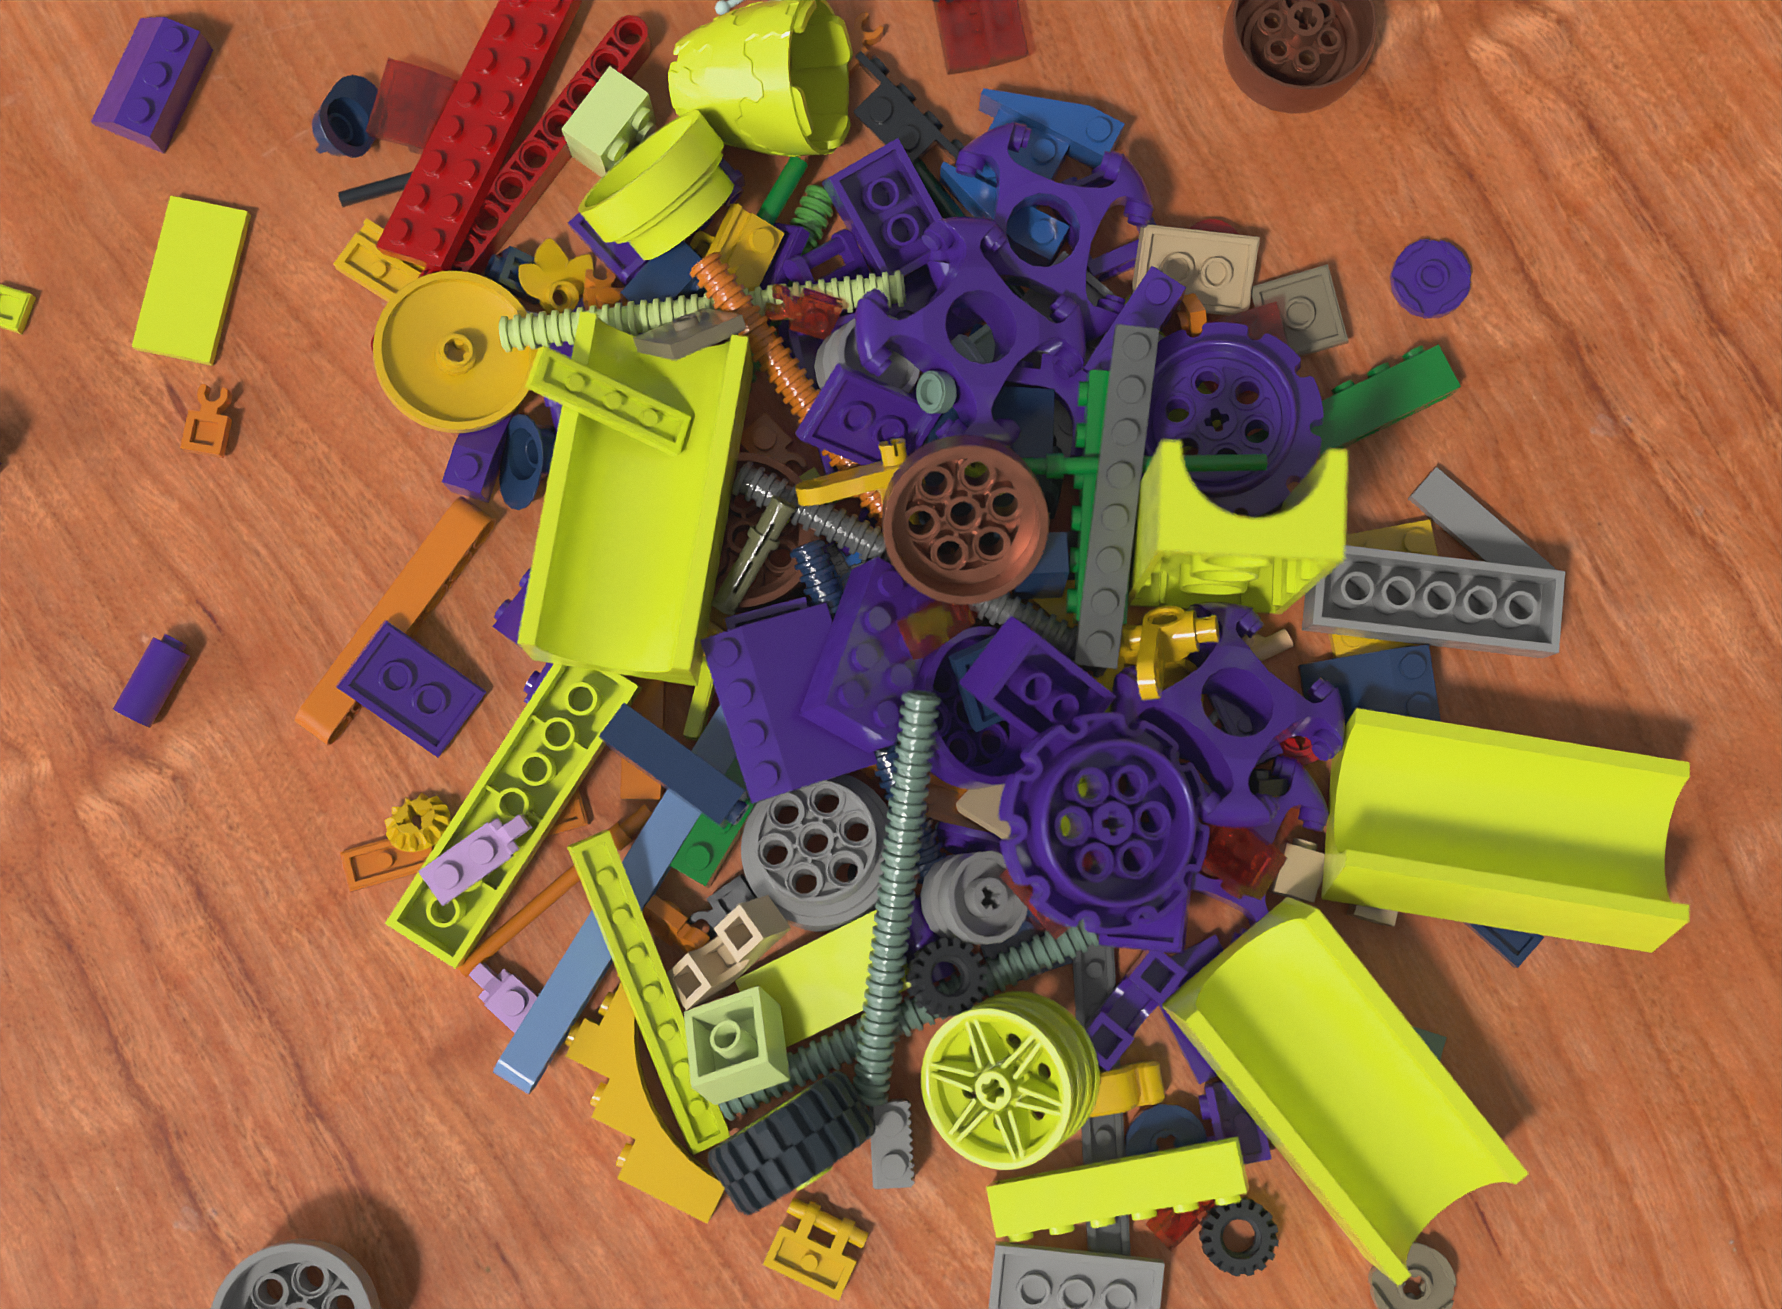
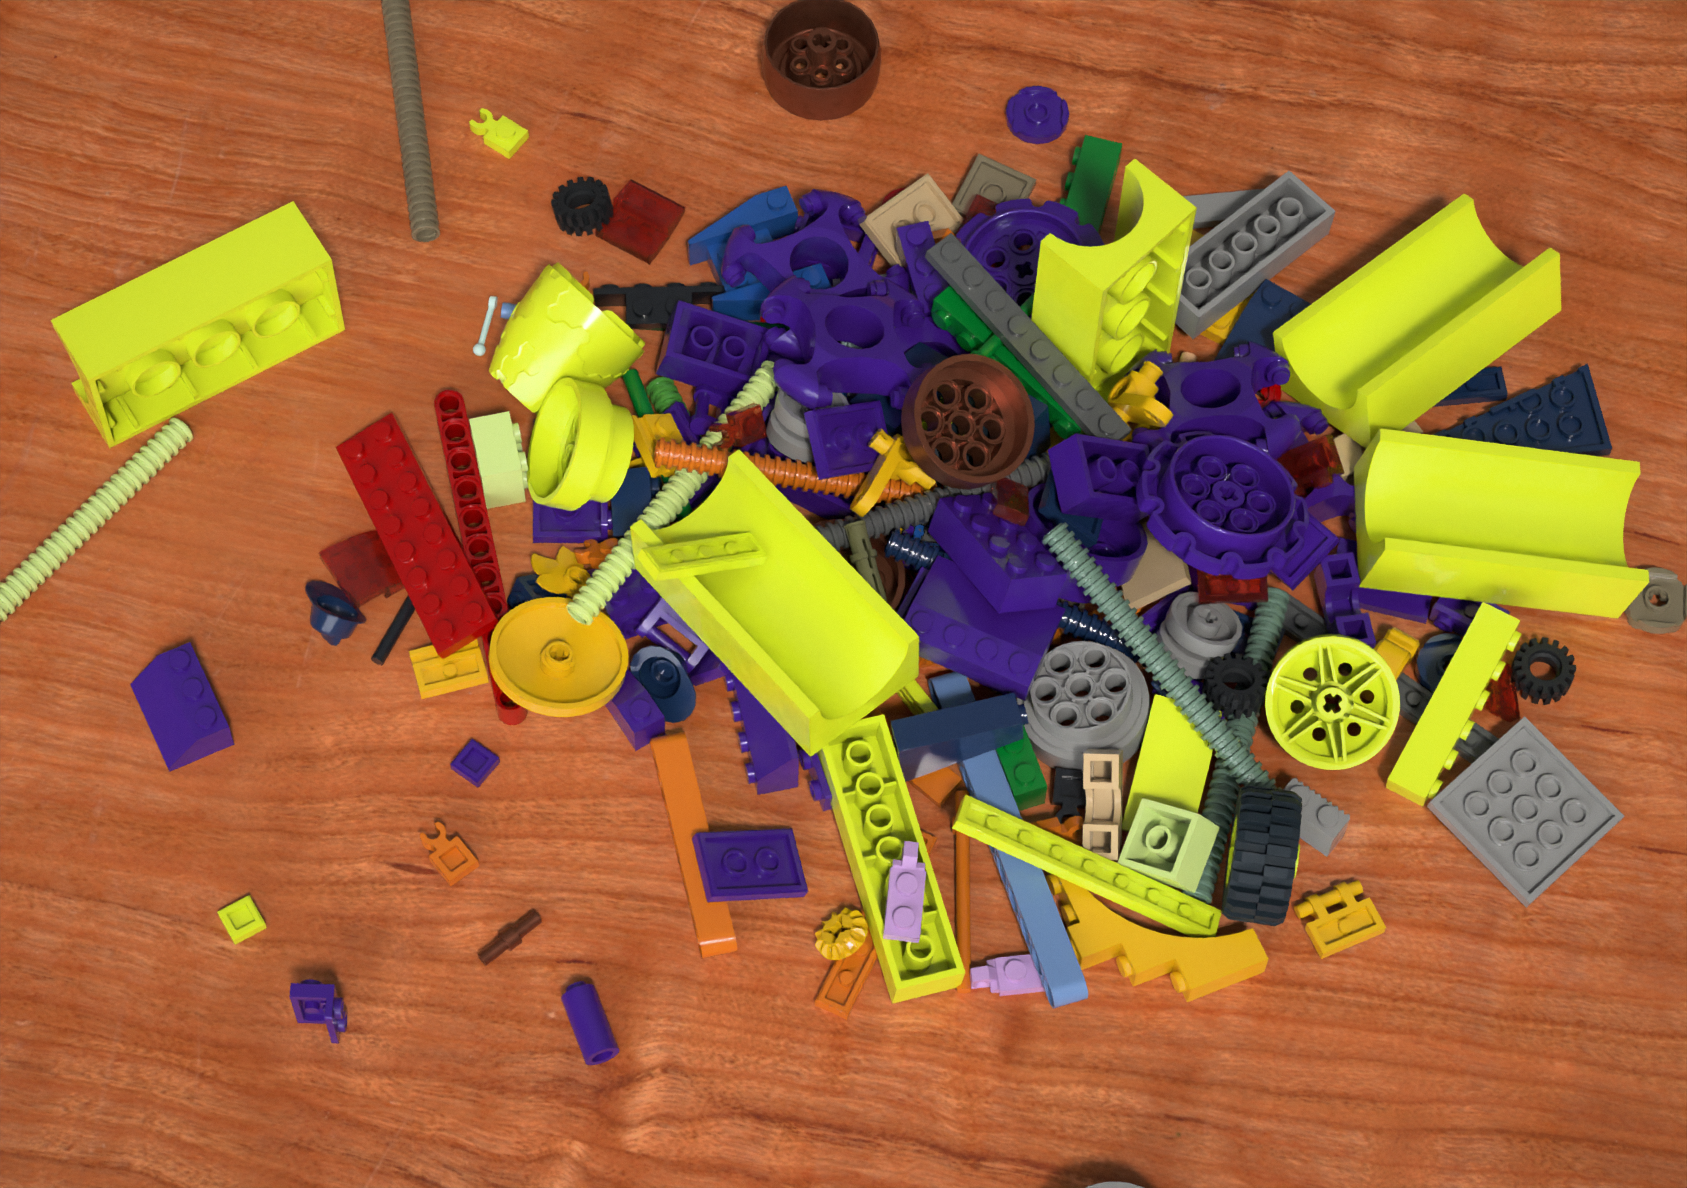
camera: 50 degrees left, 20 degrees down
(177, 543) = (509, 938): none -> copper bar
(191, 280) = (339, 792): neon yellow tile -> none
(317, 368) = (475, 763): none -> dark purple tile
(689, 333) = (698, 489): dark tan plate -> none
(936, 392) = (868, 385): sand green tile -> none
(1504, 1024) = (1554, 418): none -> dark blue wing

